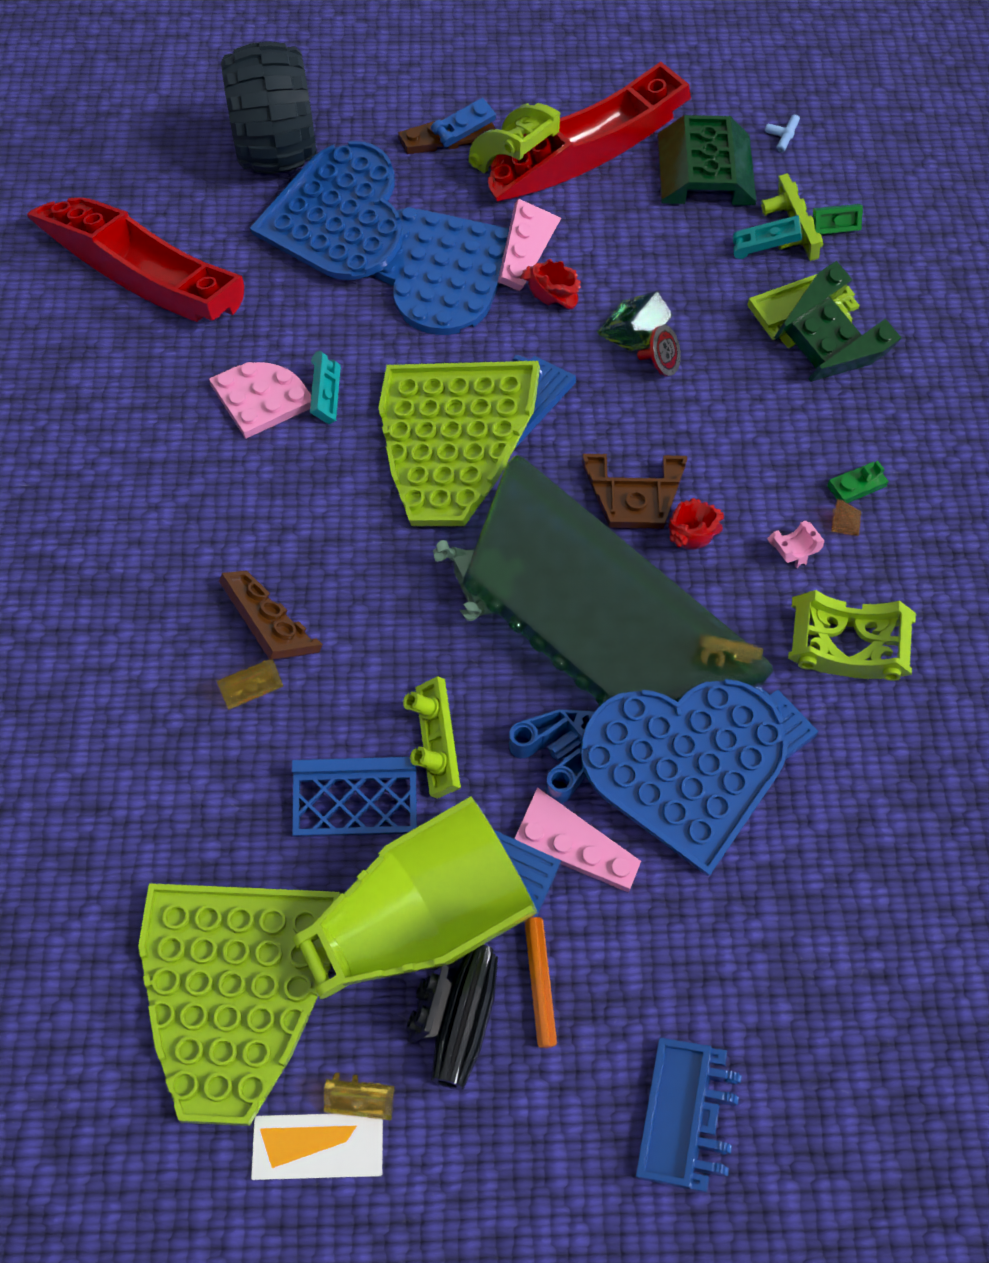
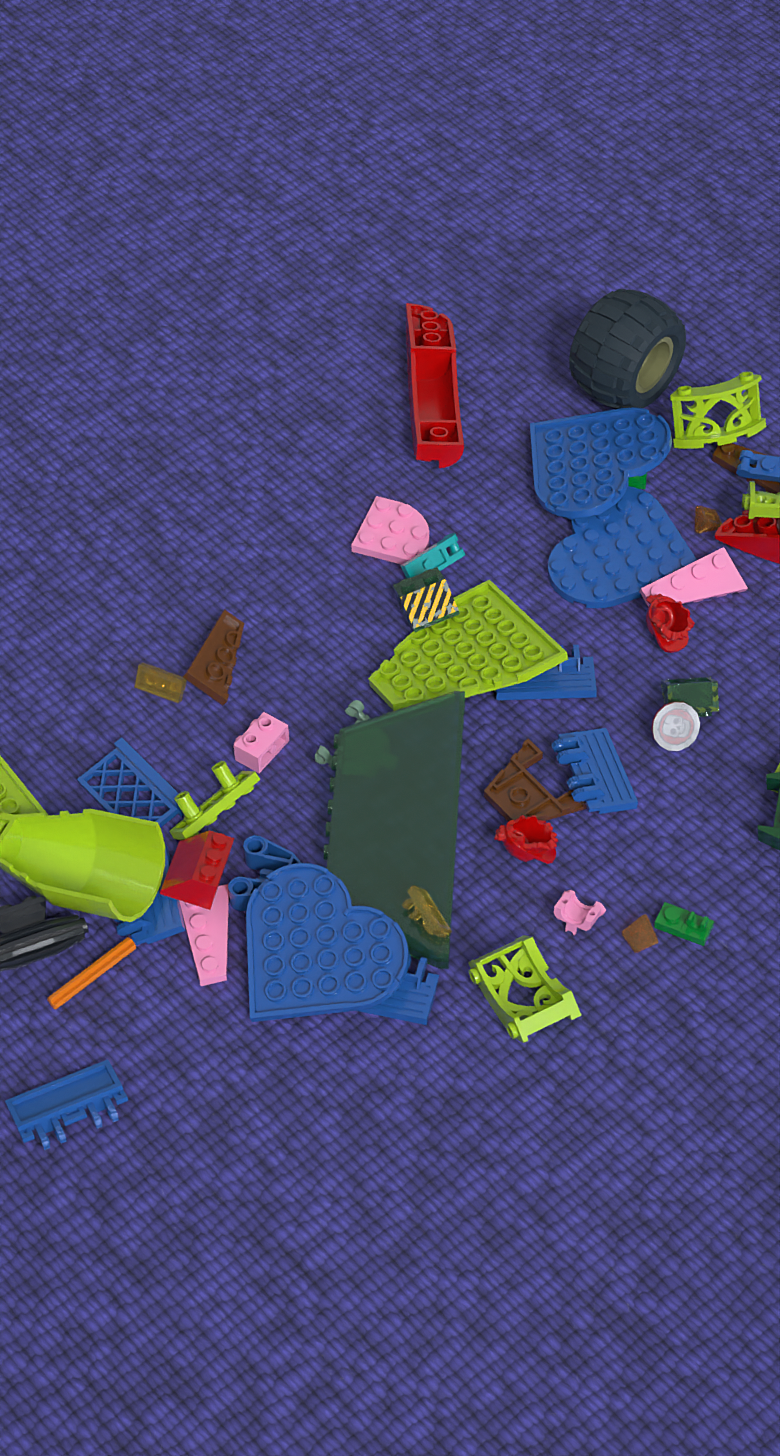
camera: 55 degrees right, 10 degrees down
(368, 420) = (425, 599): none -> slope
(370, 100) = (747, 413): none -> lime fence
(400, 650) = (261, 742): none -> bright pink brick
(466, 195) = (706, 519): none -> clear orange slope
(513, 799) = (198, 868): none -> red slope
(657, 431) = (596, 771): none -> blue hinge

